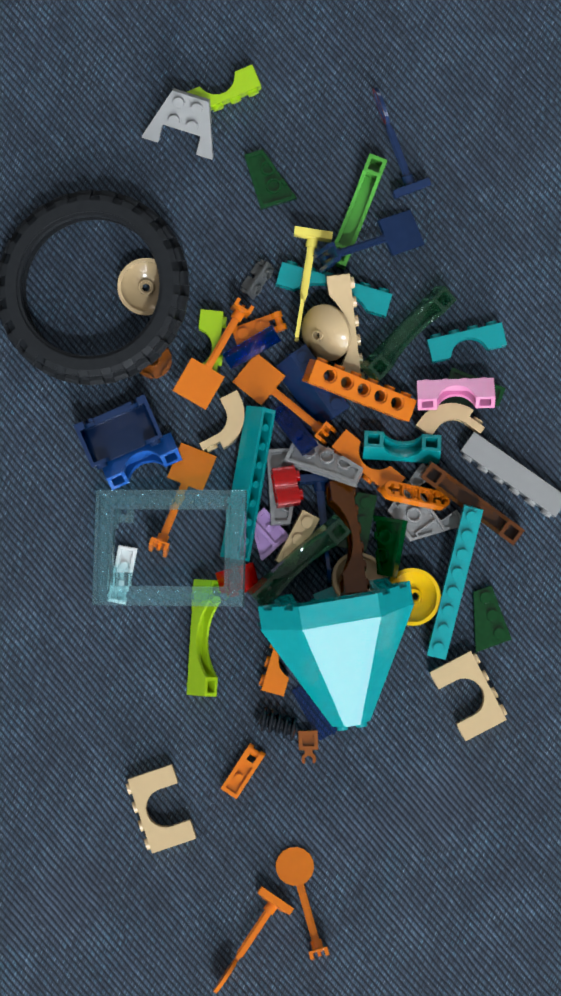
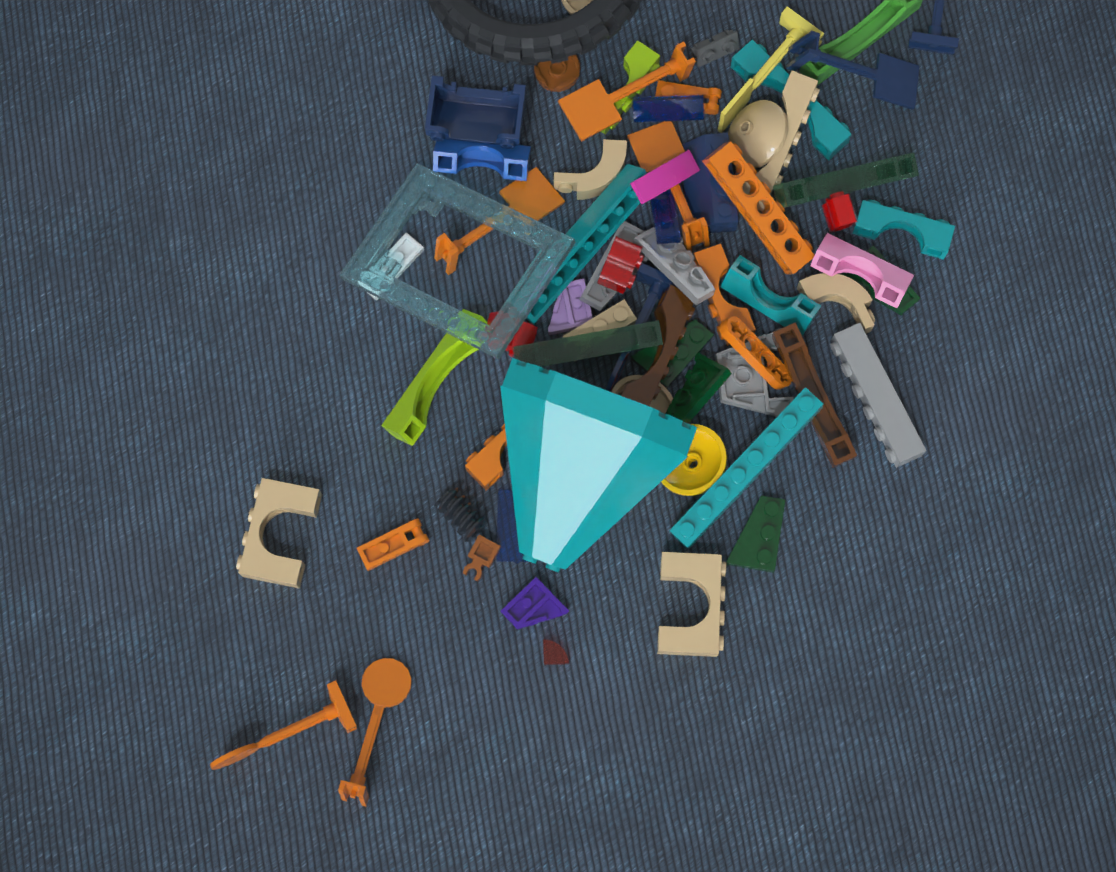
camera: 35 degrees right, 10 degrees down
(280, 403) = (665, 176): none -> dark pink slope
(363, 757) = (533, 606): none -> dark purple wing
(395, 781) = (554, 653): none -> clear red tile
(416, 359) = (839, 212): none -> red brick

